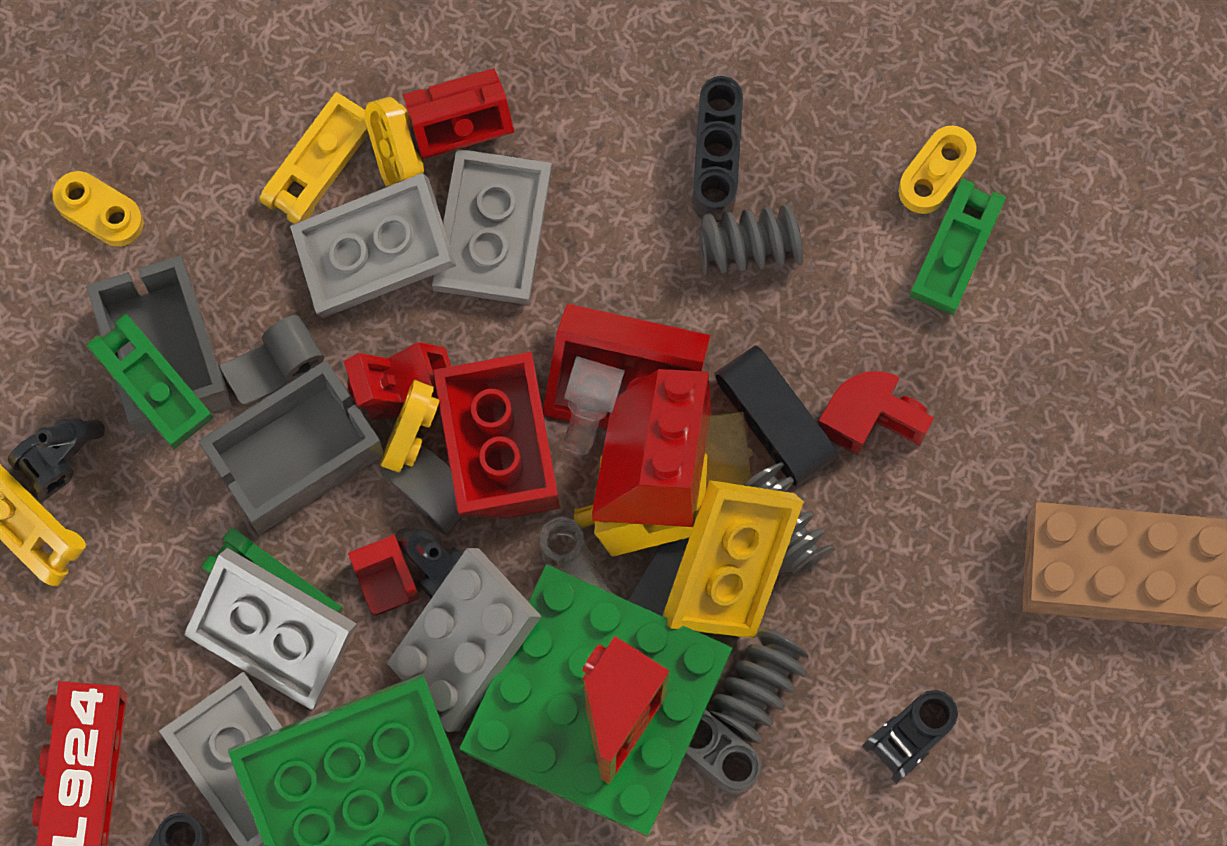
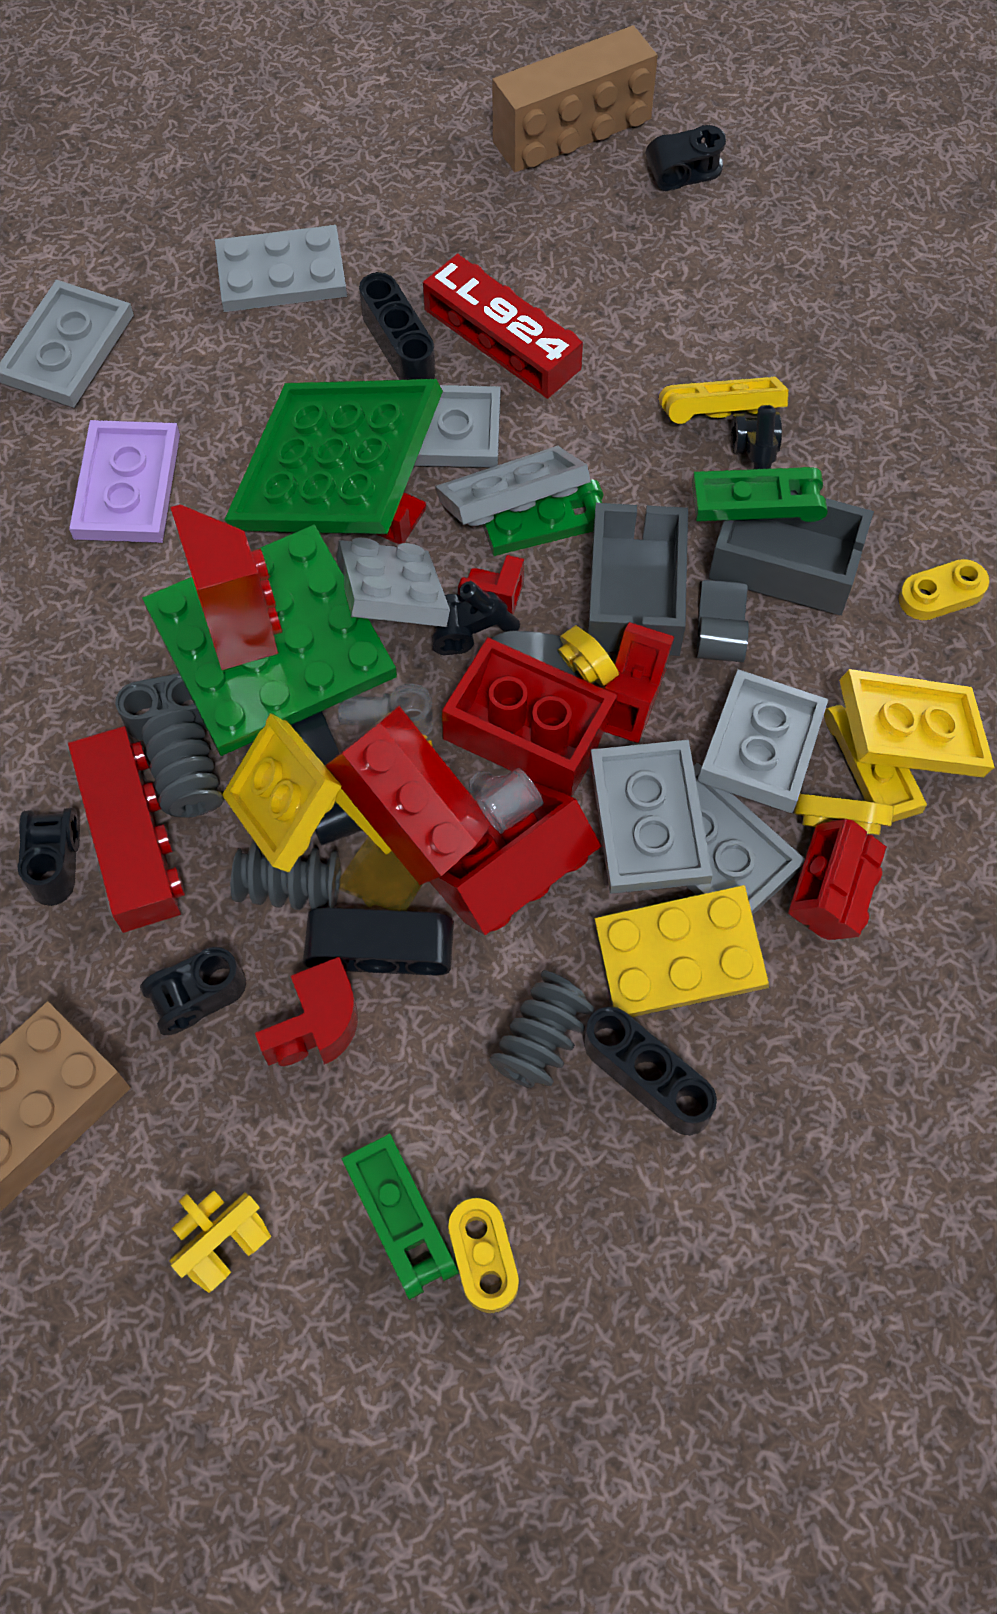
camera: 130 degrees right, 10 degrees down
(271, 138) = (915, 724): none -> yellow plate
(516, 278) = (650, 817): none -> light grey plate
(606, 188) = (682, 952): none -> yellow plate
(844, 689) = (125, 830): none -> red brick
(927, 523) = (190, 989): none -> black piece
(1077, 356) = (197, 1256): none -> yellow hips

